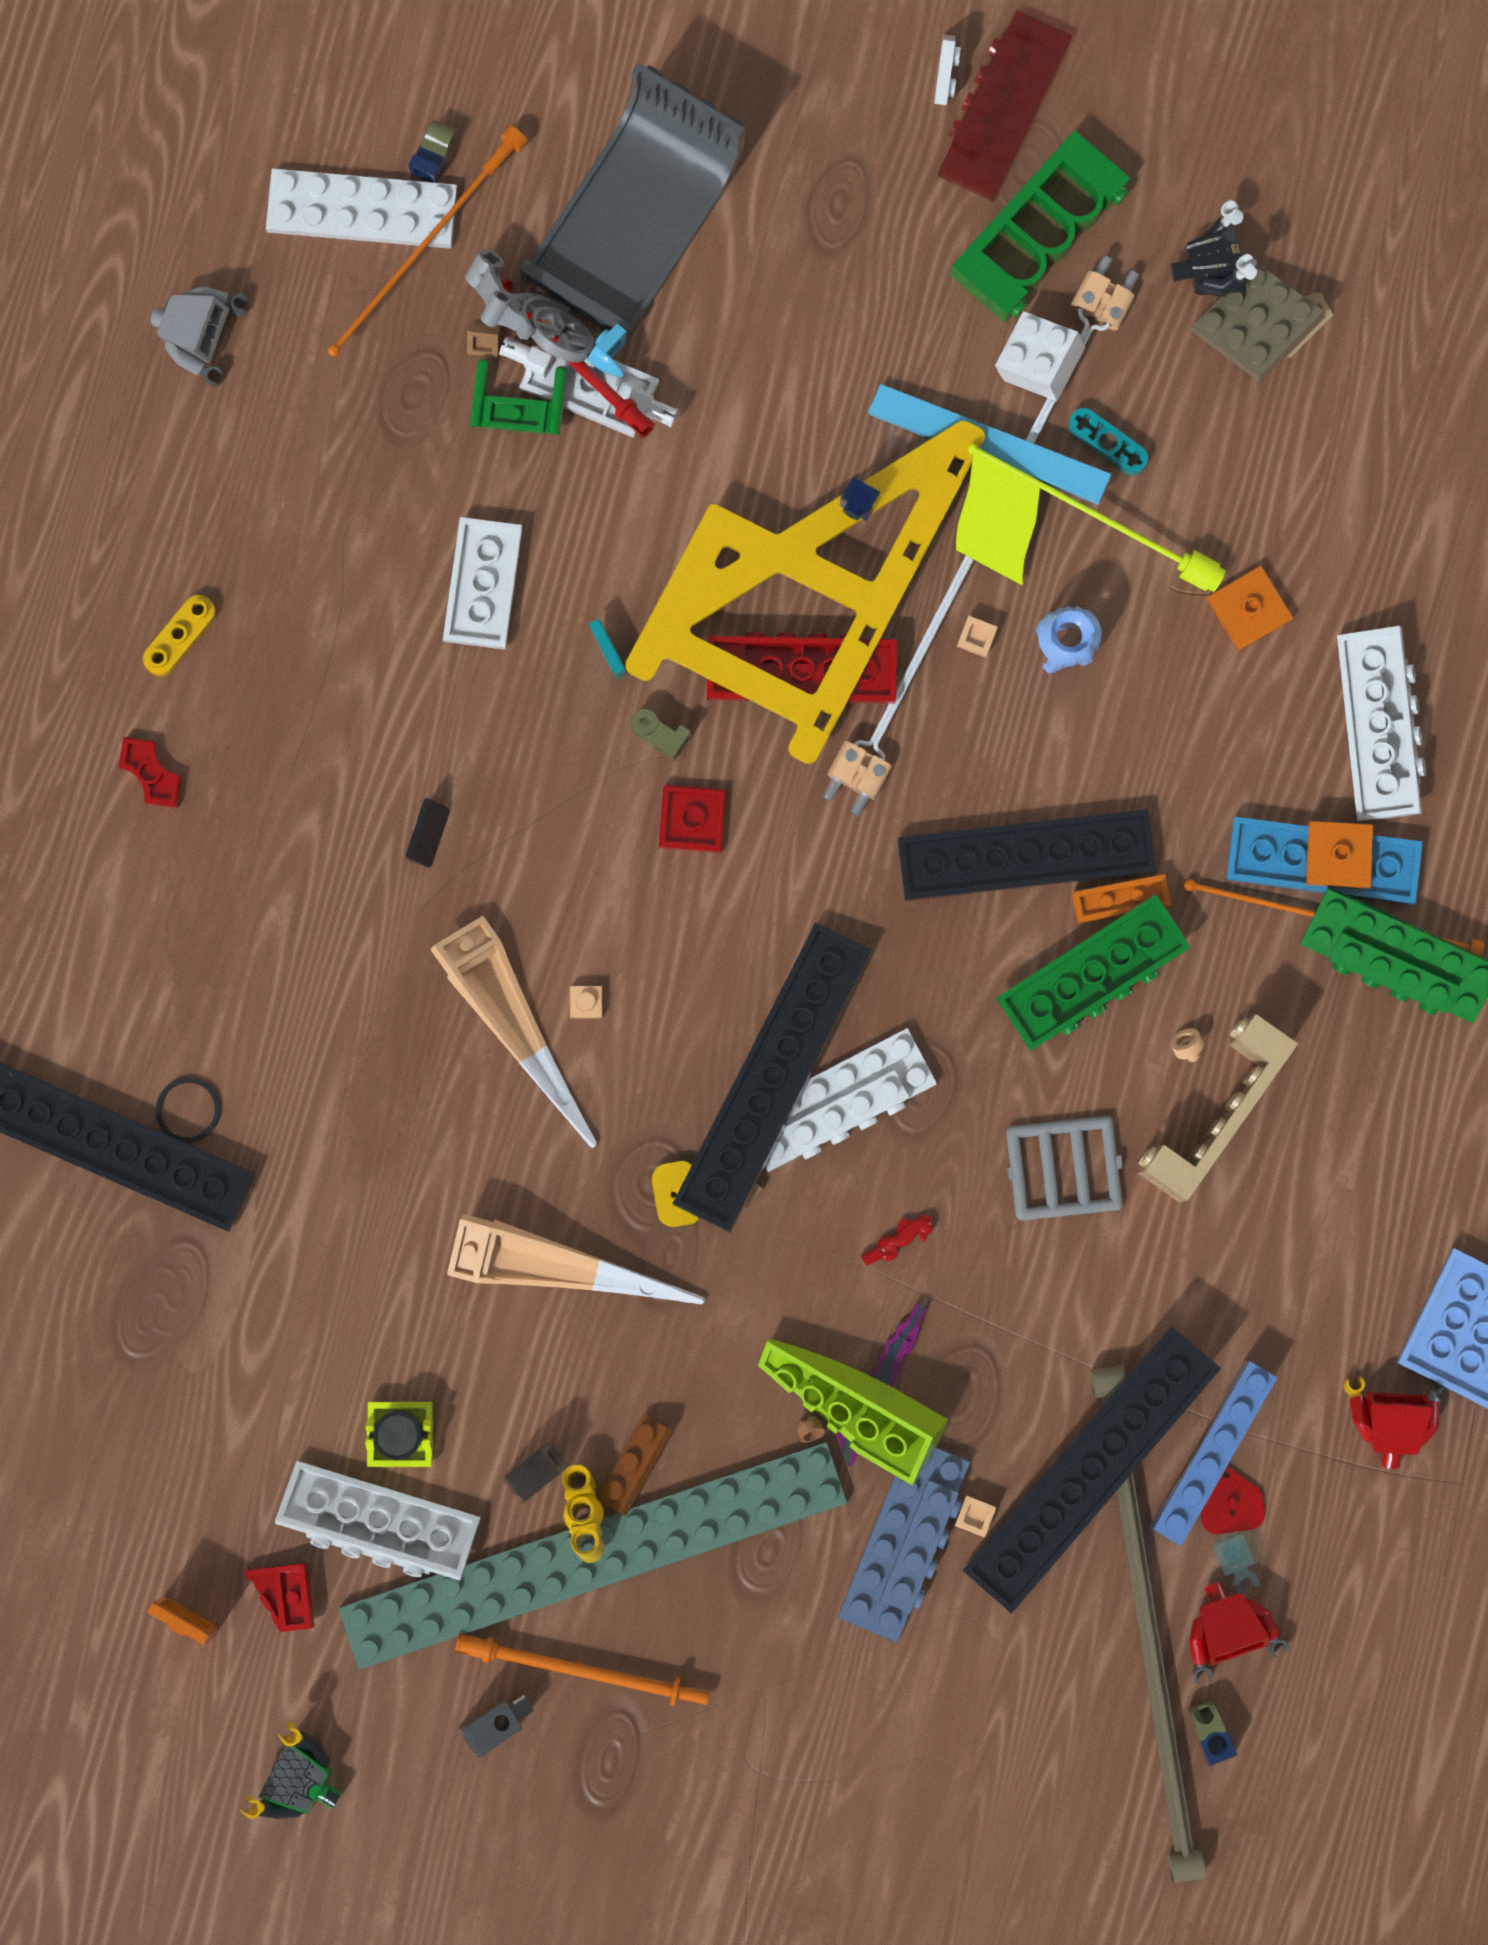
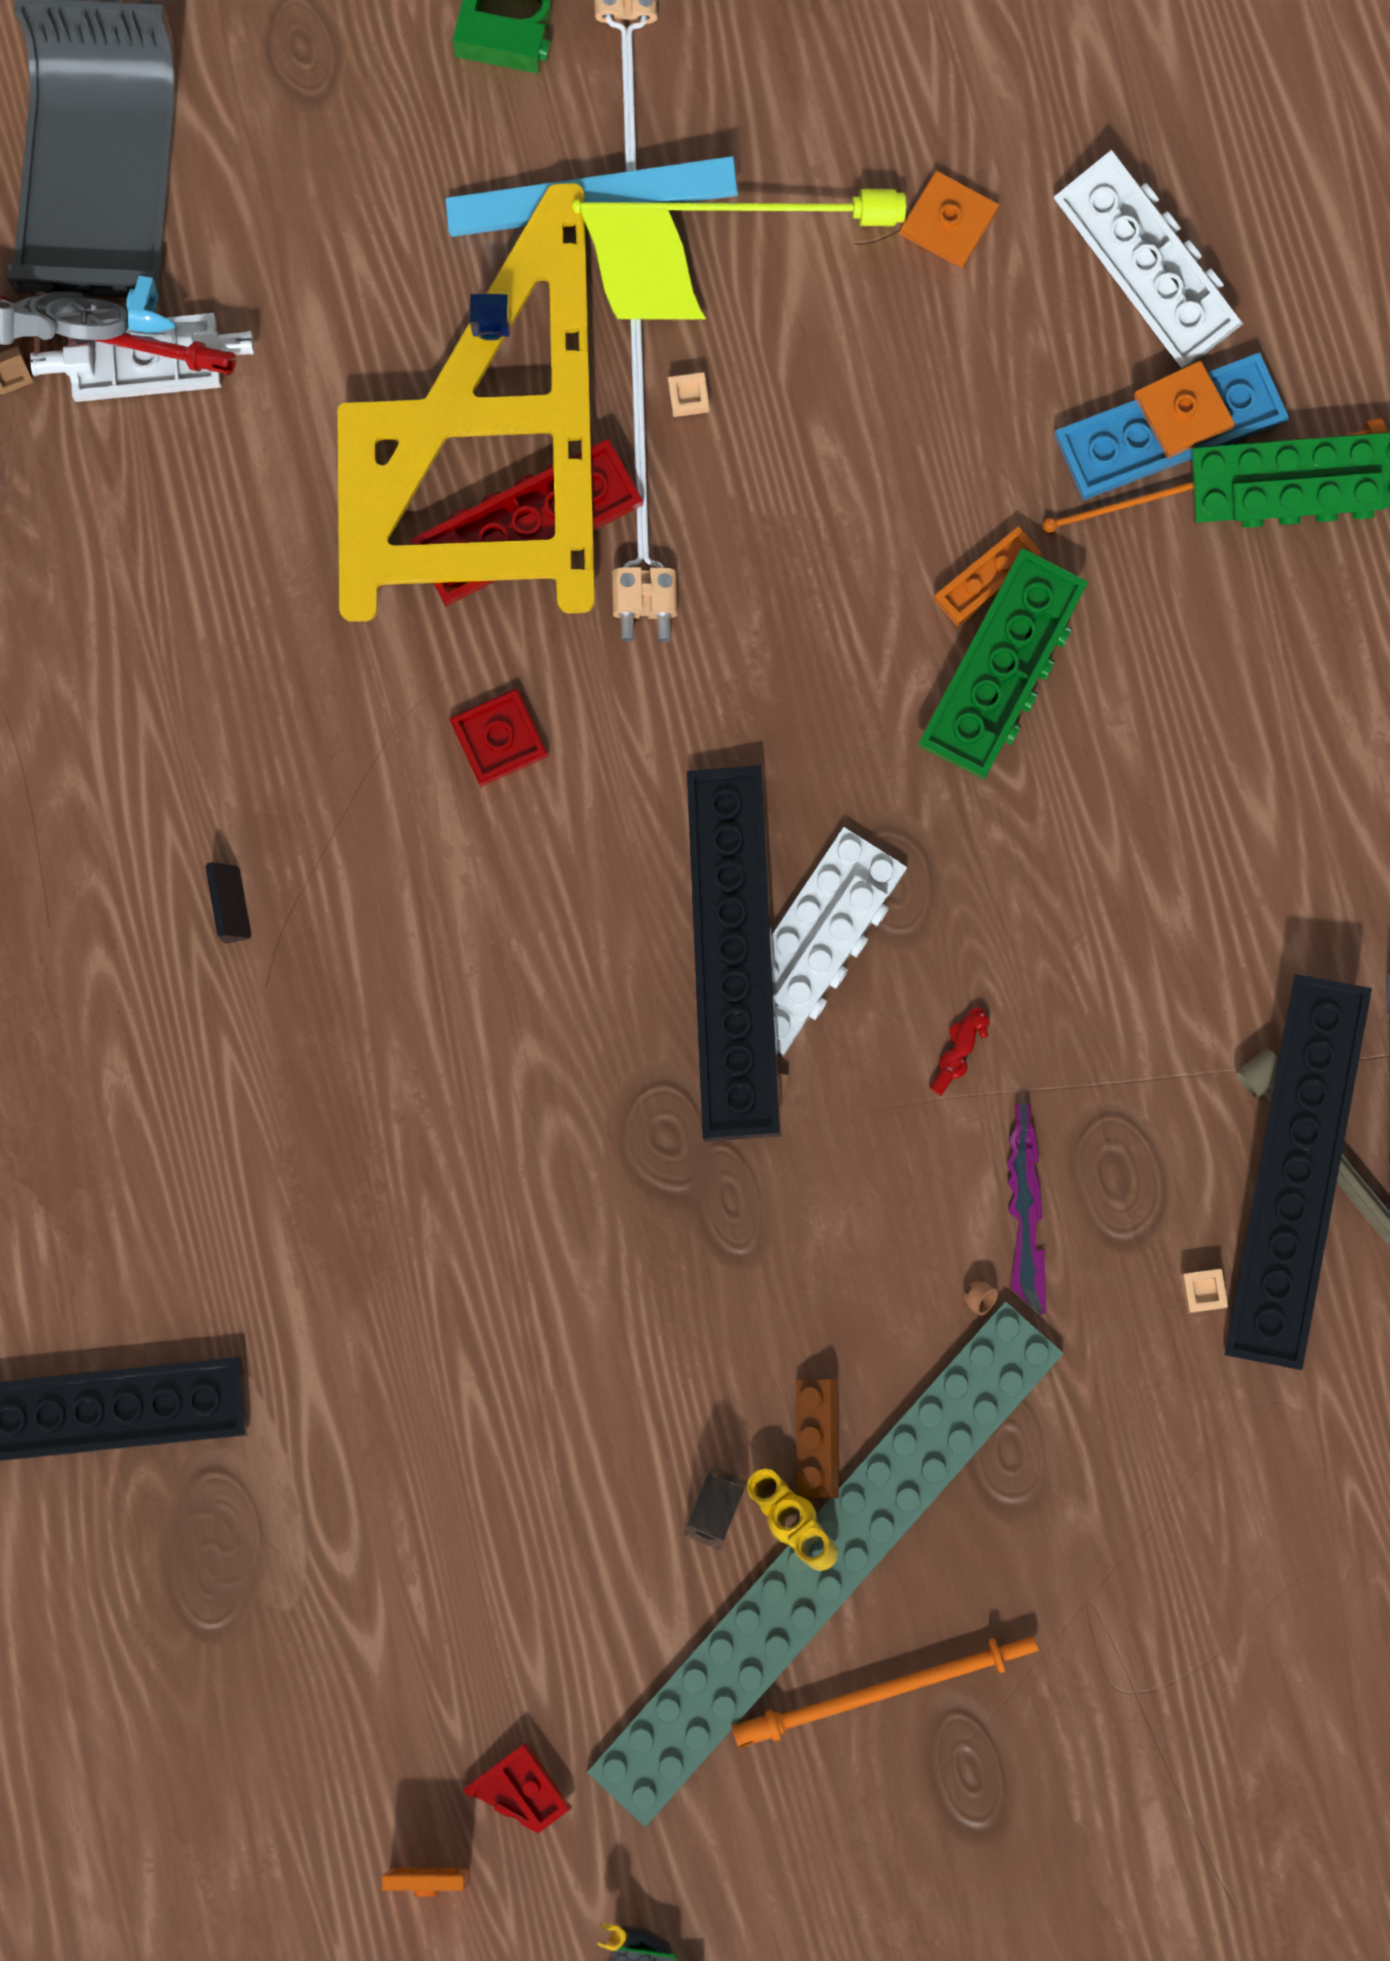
camera: 25 degrees left, 5 degrees down
(172, 1085) = (95, 1330): black piece -> none
(377, 1522) = (577, 1656): white plate -> none
(399, 1434) = (549, 1547): piece -> none
(482, 583) = (144, 616): white plate -> none
(483, 1735) = (816, 1816): dark grey torso -> none
(486, 980) = (378, 1020): light nougat plate -> none
(508, 1255) = (565, 1290): light nougat plate -> none
(516, 413) = (84, 425): green plate -> none
(585, 1002) = (493, 985): light nougat plate -> none
(608, 649) = (314, 612): teal tile -> none
(658, 735) = (415, 670): olive leg -> none
(665, 1180) = (682, 1121): yellow piece -> none
(869, 1413) = (1030, 1245): lime wedge -> none
(904, 1547) = (1146, 1358): sand blue plate -> none
(1026, 855) = (865, 585): black plate -> none
(1040, 356) = (593, 81): white brick -> none
(1060, 655) = (785, 361): light blue piece -> none
(1084, 1204) = (1099, 928): light grey bar -> none
(1106, 428) = (701, 120): teal beam -> none
(1187, 1044) = (1141, 685): light nougat tile -> none
(1269, 1051) = (1219, 642): tan plate -> none

